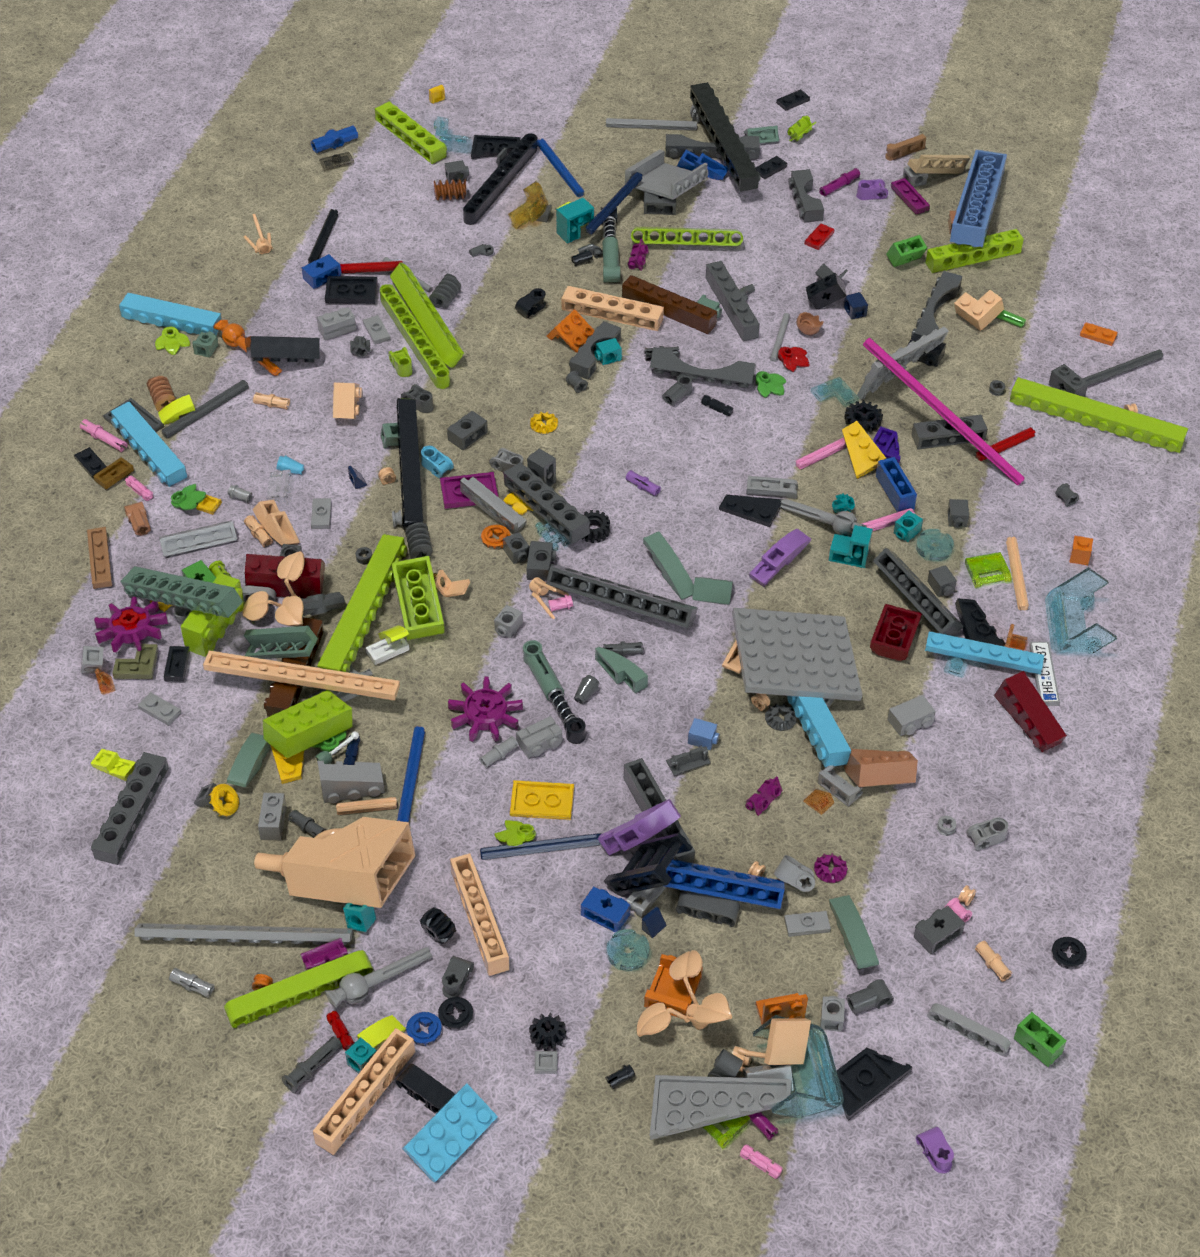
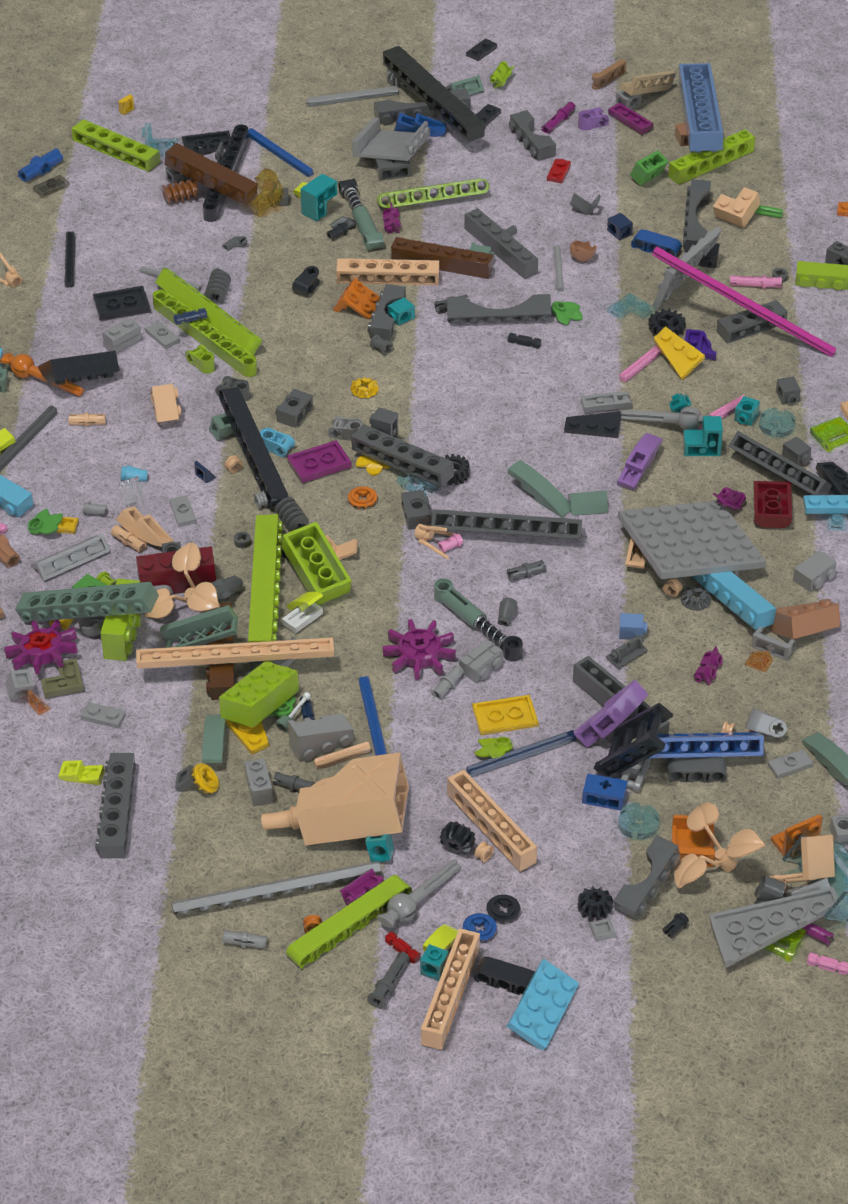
camera: 15 degrees left, 5 degrees down
(176, 663) = (102, 671): black plate -> none
(317, 272) = (81, 292): blue brick -> none
(360, 346) = (154, 352): dark grey gear -> none
(369, 267) = (130, 278): red axle -> none
(402, 317) = (190, 316): none -> dark blue axle
(456, 976) = (491, 878): dark grey piece -> none
(460, 945) = (484, 851): none -> light nougat bush
(480, 178) = (211, 174): none -> reddish brown brick
(492, 505) = (348, 469): light grey fence -> none
(508, 621) = (408, 568): light grey brick -> none
(516, 547) = (388, 503): dark grey brick -> none
(589, 1037) = (634, 899): none -> dark grey arch
(613, 203) = (351, 174): dark blue axle -> none
(621, 669) = (533, 587): sand green slope -> none
(651, 488) = (483, 422): medium lavender pin -> none
(653, 922) = (652, 793): dark blue slope -> none
(680, 389) = (483, 333): dark grey piece -> none
(793, 357) = (578, 284): red plate -> none
(822, 870) = (785, 715): magenta gear -> none
(826, 291) = (588, 218): black brick -> none
(854, 618) = (730, 498): none -> magenta hinge
(885, 330) = (648, 241): none -> blue beam
(896, 484) = (722, 376): blue brick -> none
(975, 391) = (750, 281): none -> bright pink pin
(1009, 442) = (809, 320): red axle -> none

